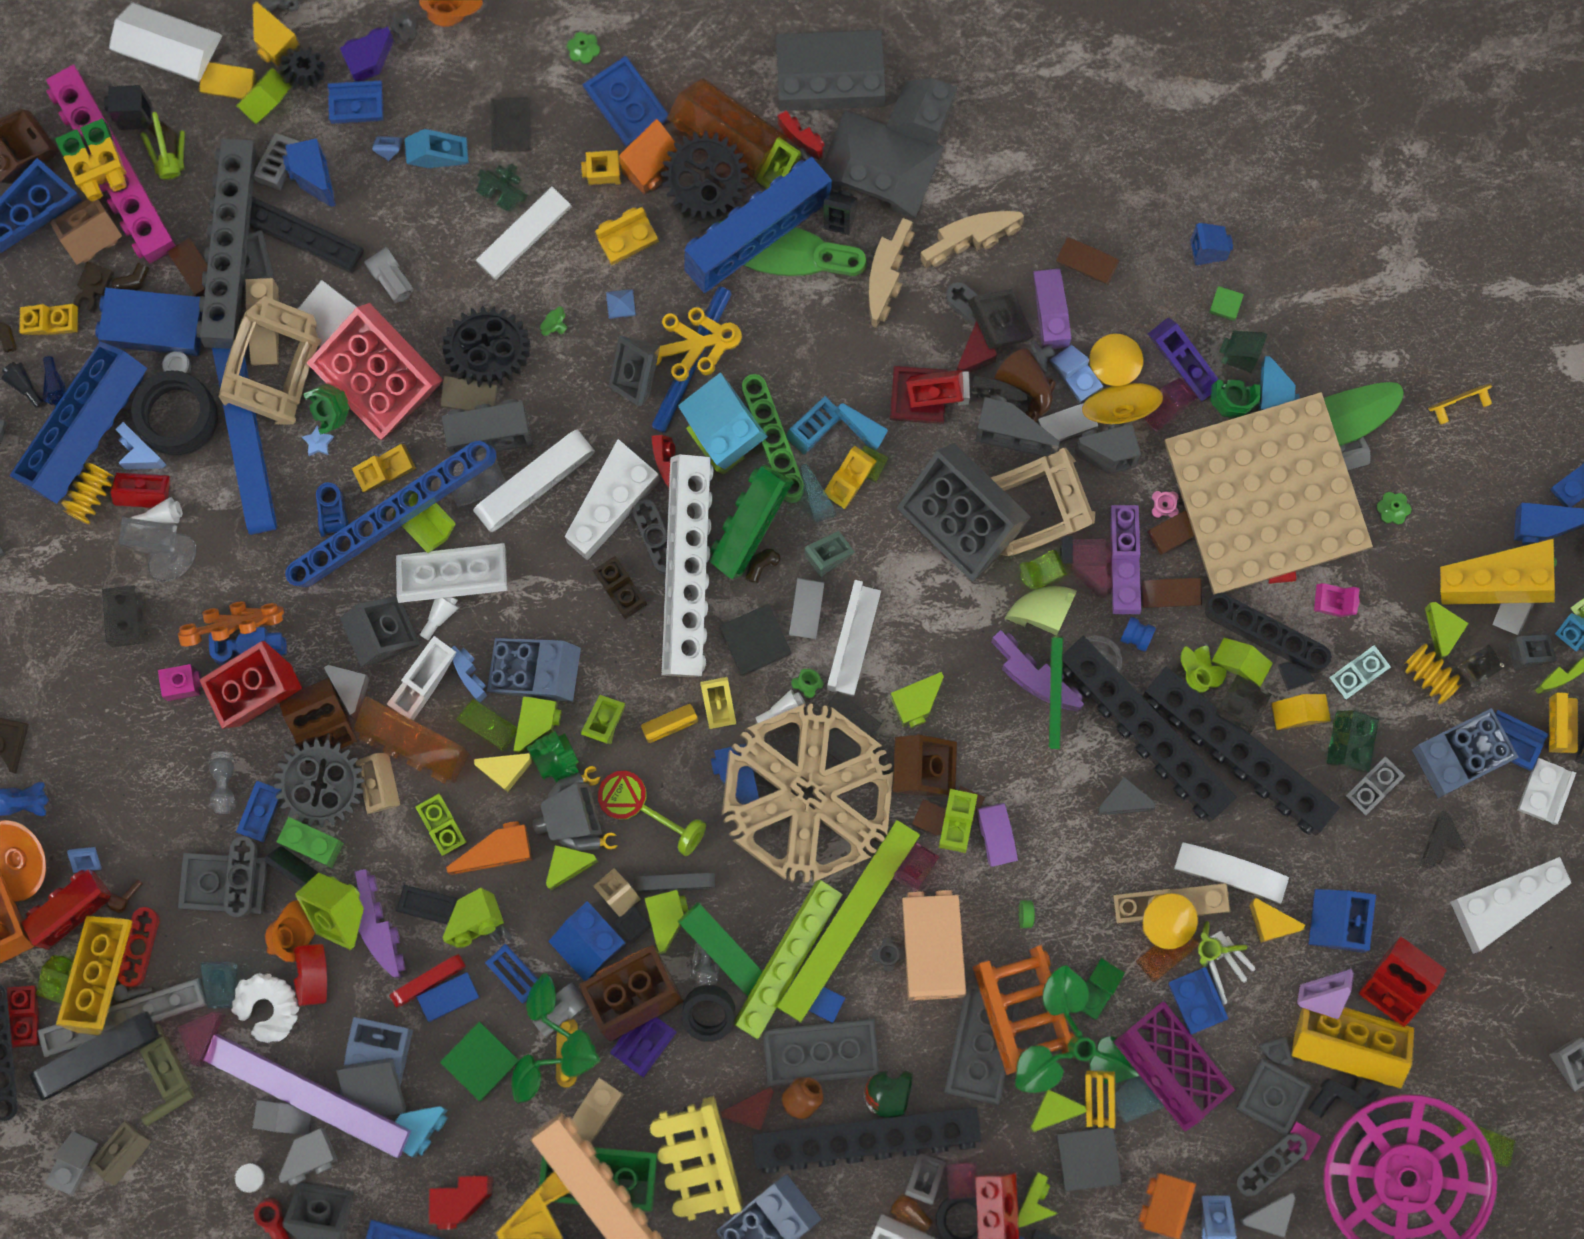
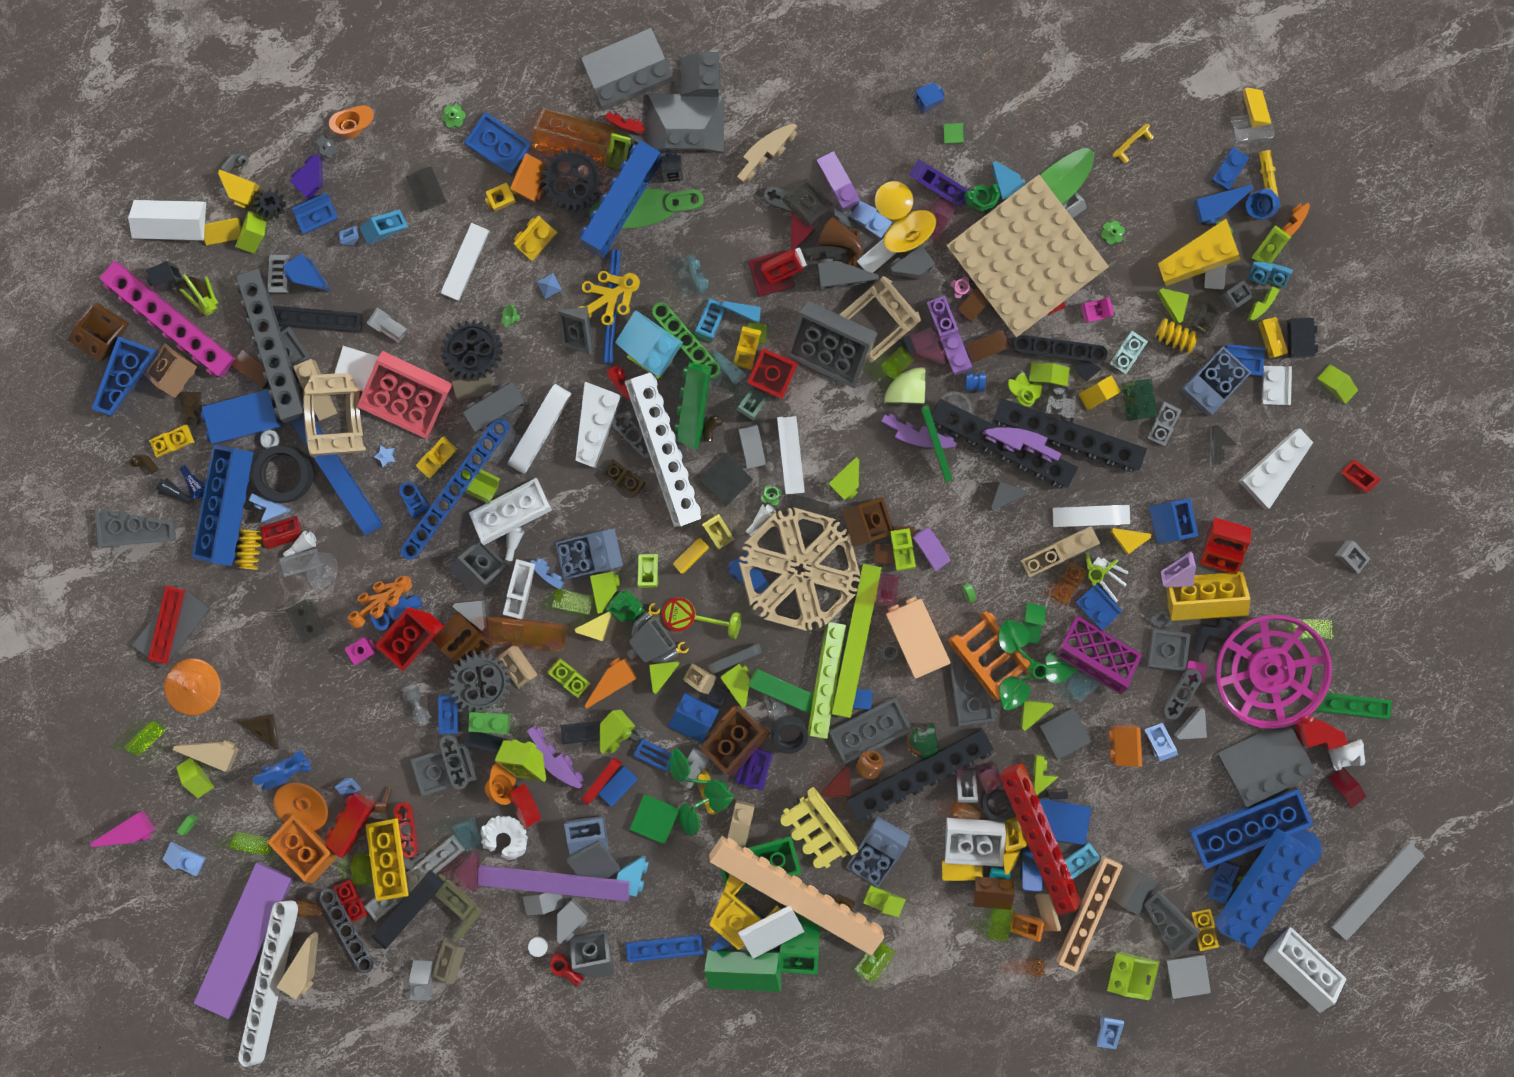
camera: 25 degrees left, 10 degrees up
(95, 168) = (161, 328): yellow hips -> none
(133, 281) = (216, 395): dark brown arm -> none
(328, 406) = (383, 431): green hair -> none
(458, 1204) = (674, 915): red piece -> none
(490, 181) = (429, 234): clear green hips -> none
(821, 369) = (699, 279): none -> clear light blue slope
(870, 522) = (772, 373): none -> red brick
(883, 279) = (719, 204): tan slope -> none
(1087, 260) = (850, 139): reddish brown slope -> none
(1100, 1120) = (1063, 706): yellow tile -> none
(1165, 722) = (1014, 439): none -> medium lavender slope
(1170, 921) = (1063, 564): yellow dish -> none
(1243, 349) = (976, 162): clear green slope -> none

